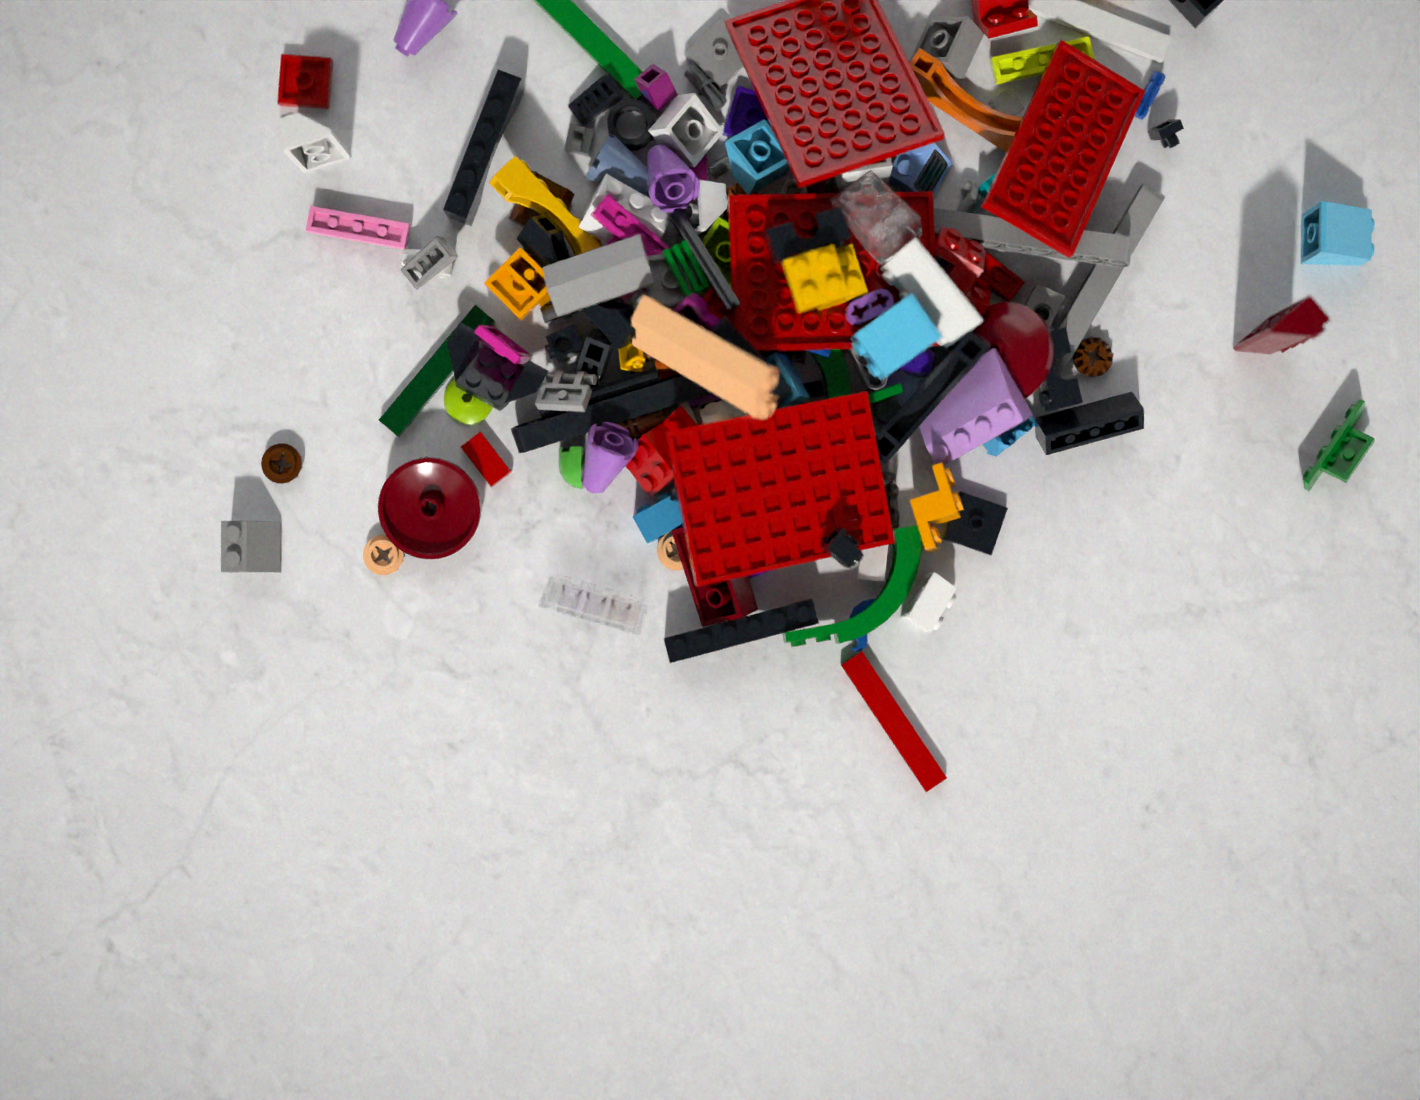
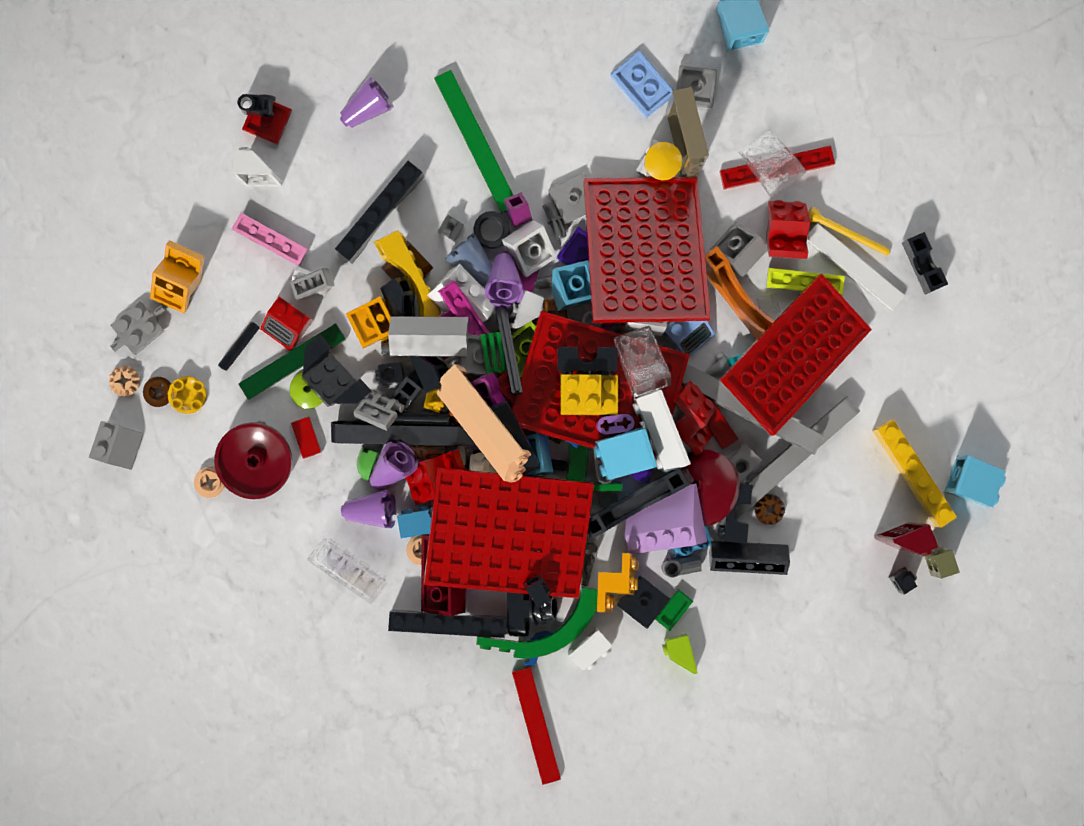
camera: 15 degrees right, 0 degrees up
(229, 392) = (137, 328): none -> light grey plate
(245, 467) = (130, 386): none -> light nougat gear
(256, 310) = (176, 276): none -> light orange bracket
(288, 64) = (261, 105): none -> black piece
(319, 455) = (187, 395): none -> yellow dish
(363, 373) = (238, 346): none -> black axle
(412, 325) = (285, 323): none -> red slope
(502, 344) = (345, 360): dark pink plate -> none
(597, 520) = (371, 509): none -> medium lavender cone
(609, 101) = (488, 204): black slope -> none
(826, 581) = (522, 608): none -> black beam
(1009, 462) = (683, 566): none -> dark grey piece
(1016, 520) = (674, 610): none -> green tile
(1043, 569) = (680, 651): none -> lime slope
(1150, 94) = (876, 330): blue axle -> none
(1166, 132) = (877, 363): black tile -> none
(1257, 249) = (914, 473): none -> yellow brick
(1291, 385) = (903, 580): none -> black brick
(1330, 349) = (942, 563): none -> olive brick
(1343, 452) = (927, 639): green bracket -> none

